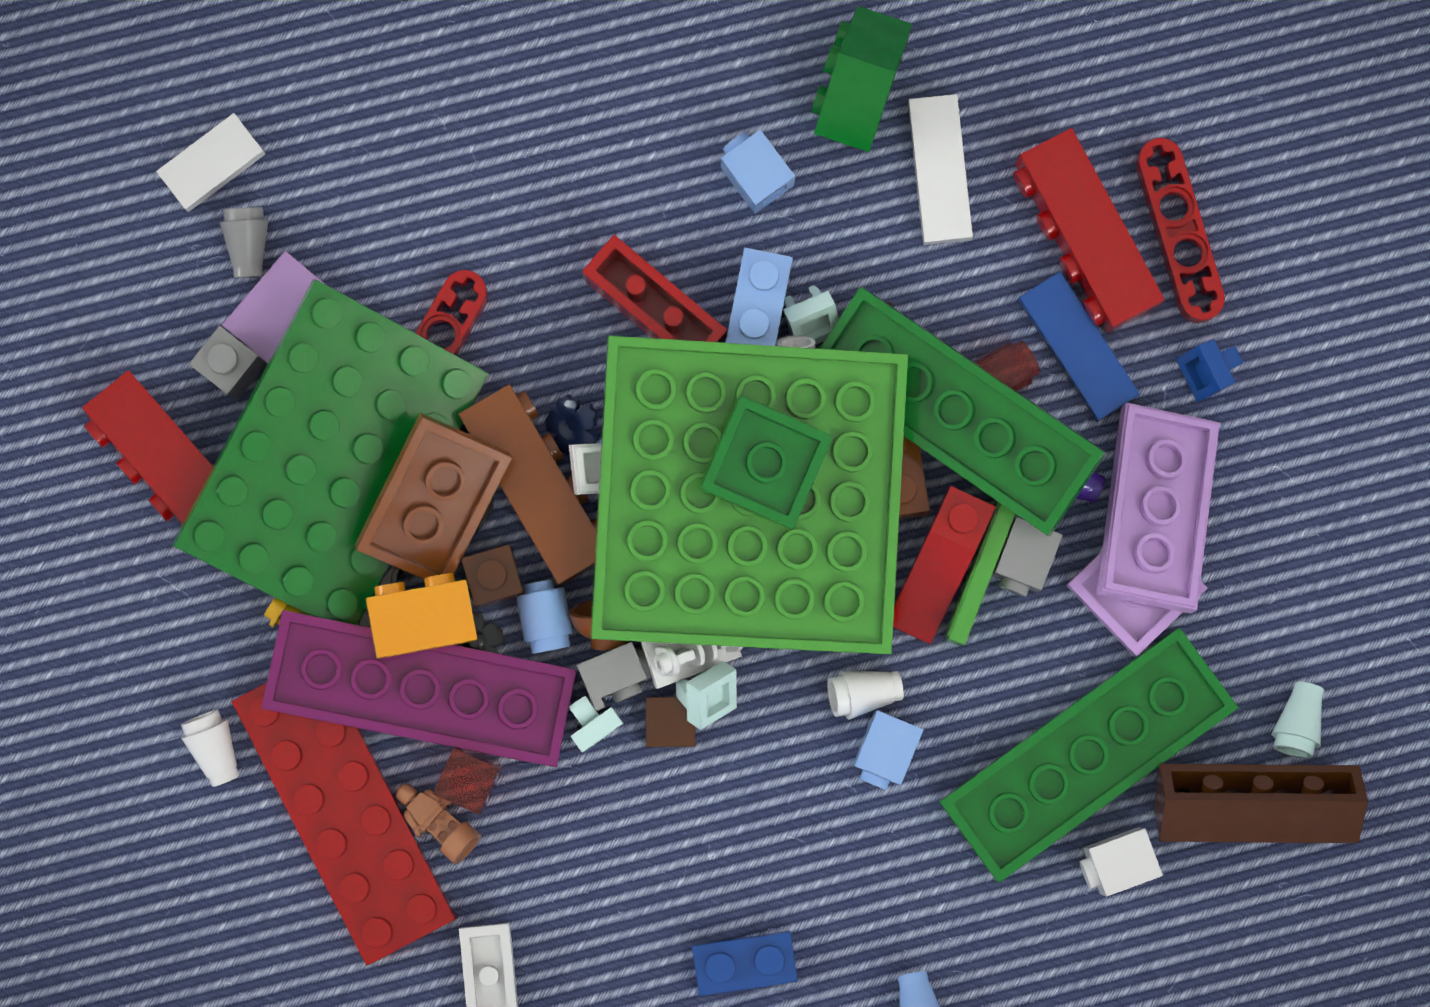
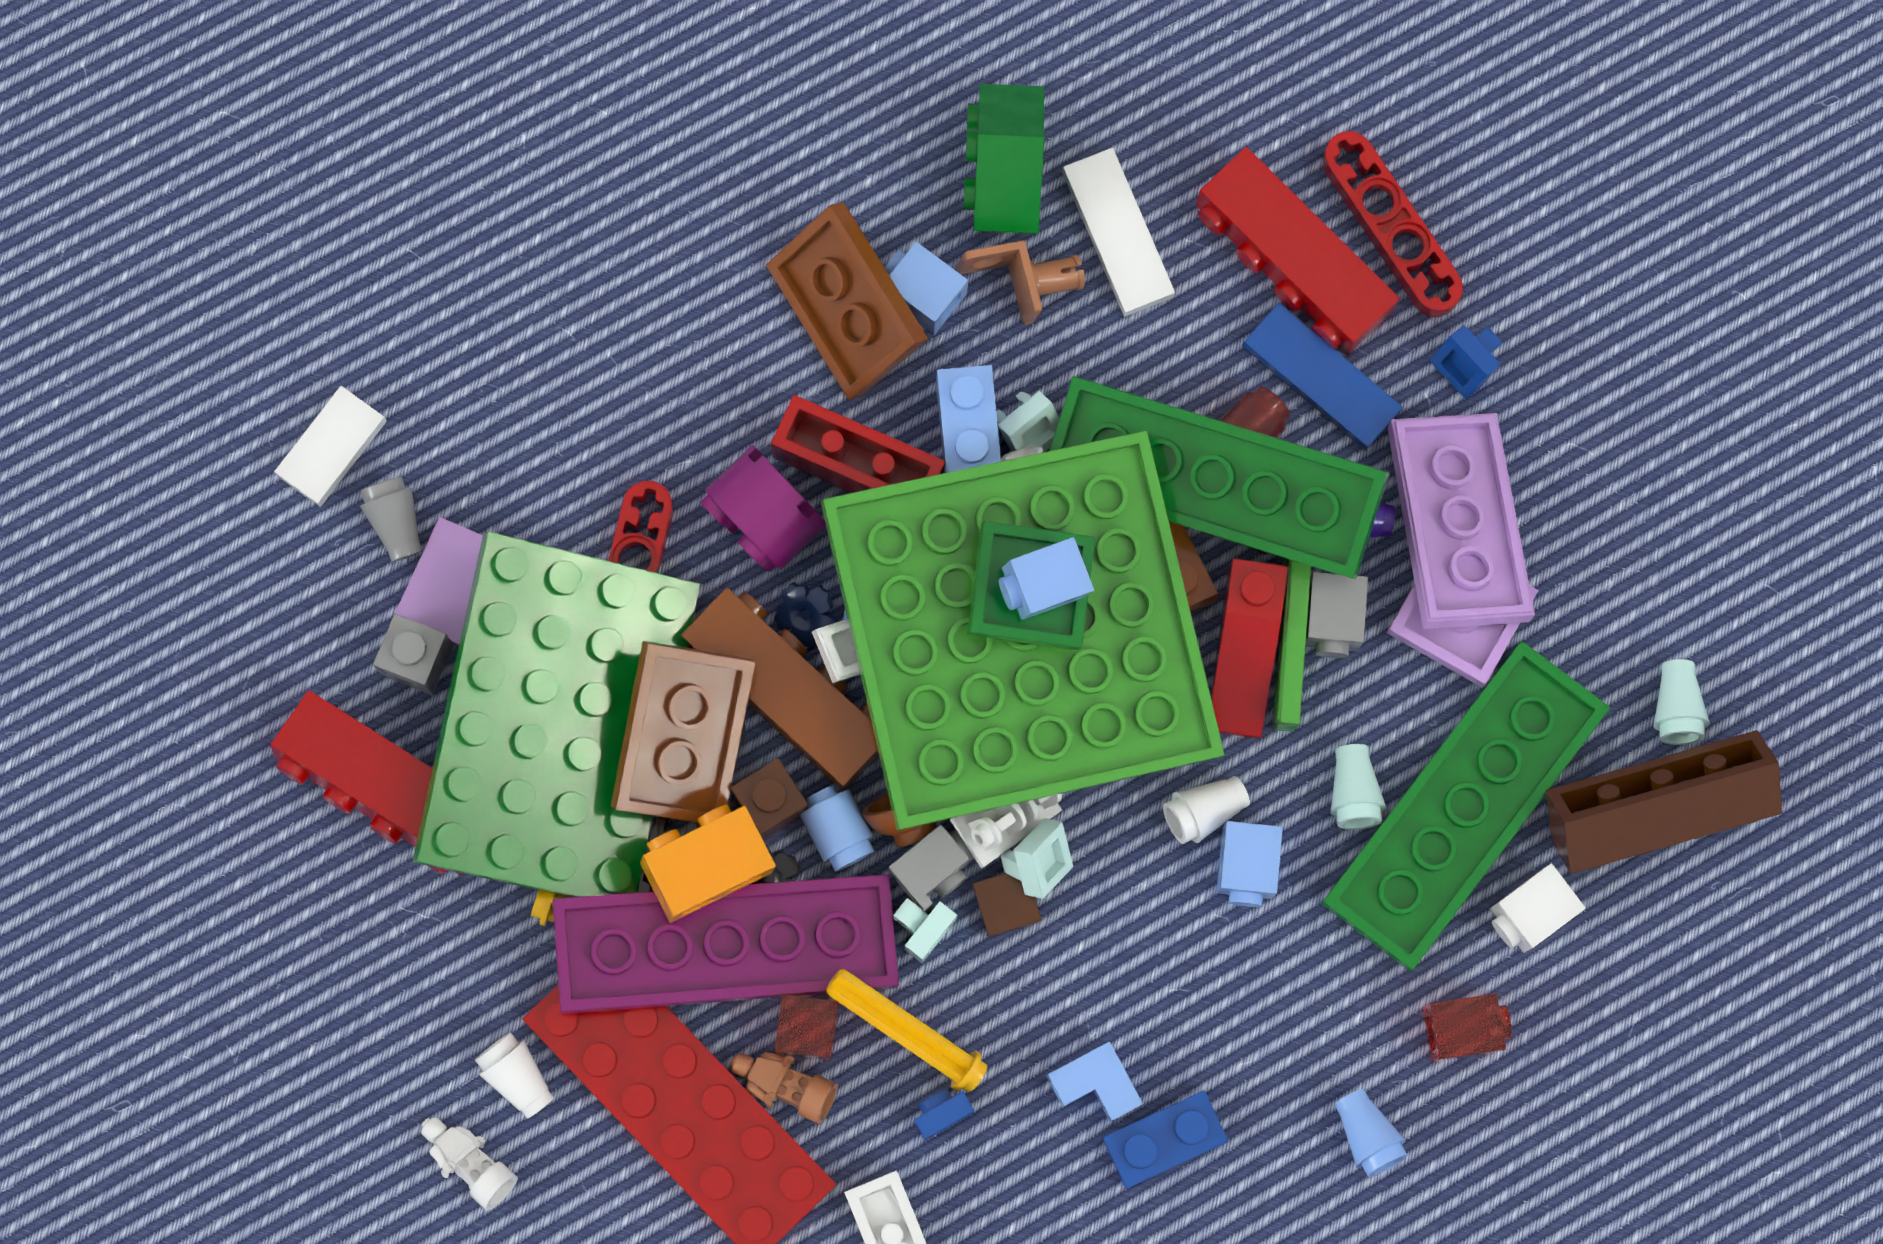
camera: 20 degrees left, 5 degrees down
(147, 798) = (459, 1152): none -> white piece
(552, 808) = (963, 1068): none -> yellow axle
(561, 325) = (765, 508): none -> magenta brick
(561, 885) = (941, 1112): none -> blue plate
(685, 164) = (846, 301): none -> dark orange plate
(705, 890) = (1100, 1073): none -> light blue piece
(777, 462) = (1045, 579): none -> light blue brick
(849, 189) = (1028, 279): none -> nougat bracket
(997, 715) = (1356, 792): none -> light aqua cone
(1030, 946) = (1466, 1027): none -> clear red brick

